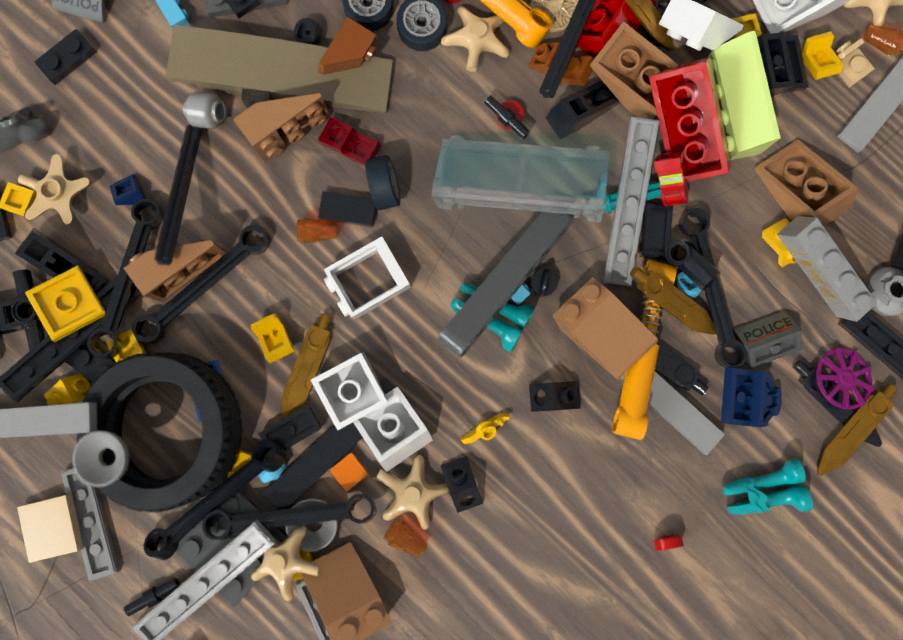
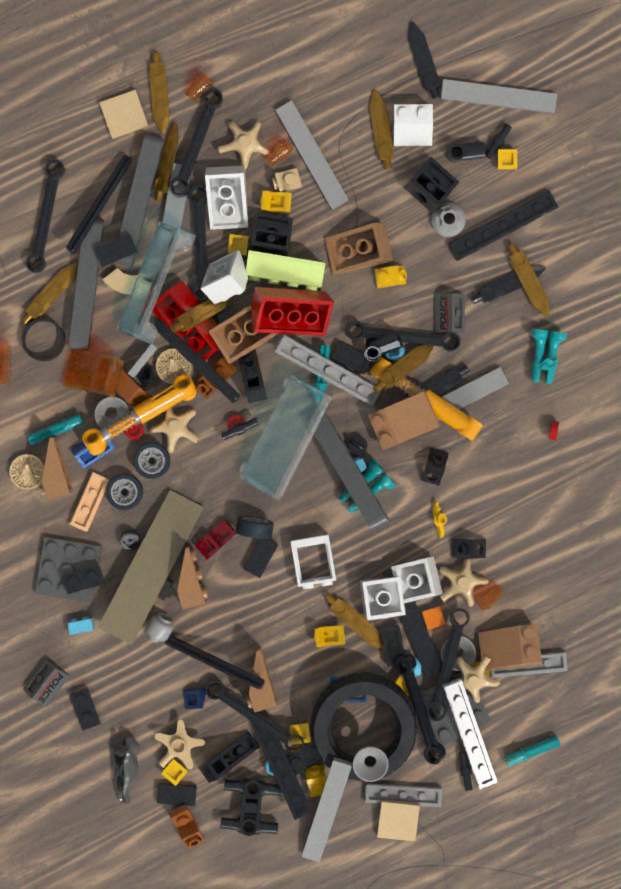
camera: 70 degrees left, 5 degrees up
(66, 303) = (259, 759): yellow tile -> none
(200, 285) = (276, 671): black piece -> none
(315, 230) = (268, 583): clear orange cone -> none
(348, 48) = (156, 517): dark orange slope -> none
(672, 178) = (322, 337): red leg -> none
(749, 398) = (483, 342): dark blue slope -> none
(827, 268) = (419, 262): light grey brick -> none
(845, 378) = (493, 274): magenta wheel -> none

